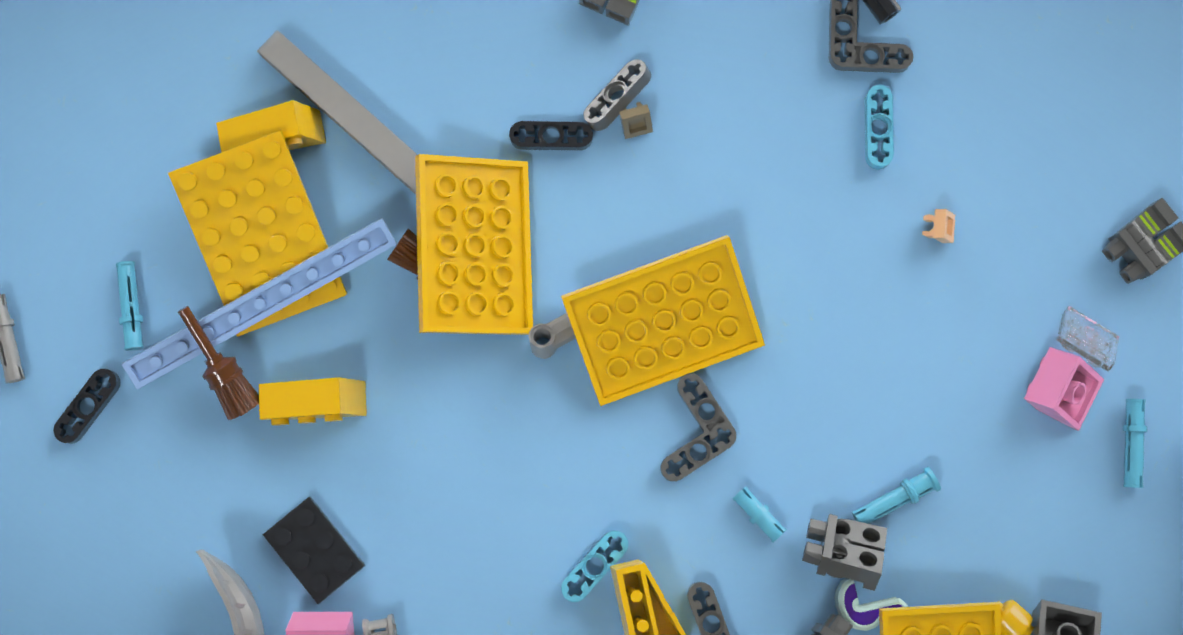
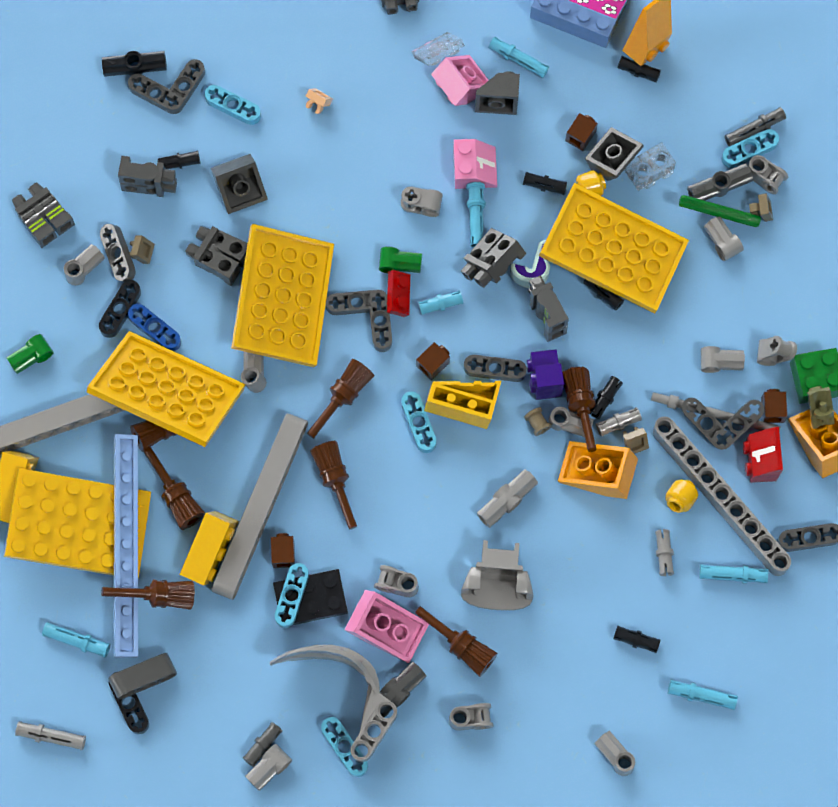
camera: 60 degrees left, 10 degrees down
(95, 612) = (272, 763): none -> light grey piece
(111, 587) = (262, 744): none -> dark grey pin
(119, 406) = (142, 676): none -> dark grey beam
(276, 525) = (292, 612): none -> medium azure beam
(351, 488) = (282, 551): none -> reddish brown brick
(355, 326) = (176, 496): none -> reddish brown piece
(393, 431) = (259, 506): none -> light grey beam
(446, 67) = (35, 351): none -> green piece
(472, 501) = (334, 475): none -> reddish brown piece
(545, 166) = (138, 322): none -> blue beam
(582, 457) = (343, 392): none -> reddish brown piece
(584, 65) = (84, 263): none -> light grey piece
(676, 205) = (218, 253): none -> dark grey hips
(680, 544) = (433, 360): none -> reddish brown brick
(725, 76) = (146, 177): none -> dark grey hips
(743, 456) = (398, 293): none -> red plate
(772, 103) = (180, 160): none -> black axle
(780, 189) = (239, 183): none -> dark grey slope
(782, 429) = (394, 259): none -> green piece
(877, 426) = (423, 201): none -> light grey piece
(961, 462) = (474, 163): none -> bright pink slope
(983, 562) = (544, 183): none -> black pin
(1069, 448) = (499, 94): none -> dark grey slope
(1077, 574) = (581, 131): none -> reddish brown brick

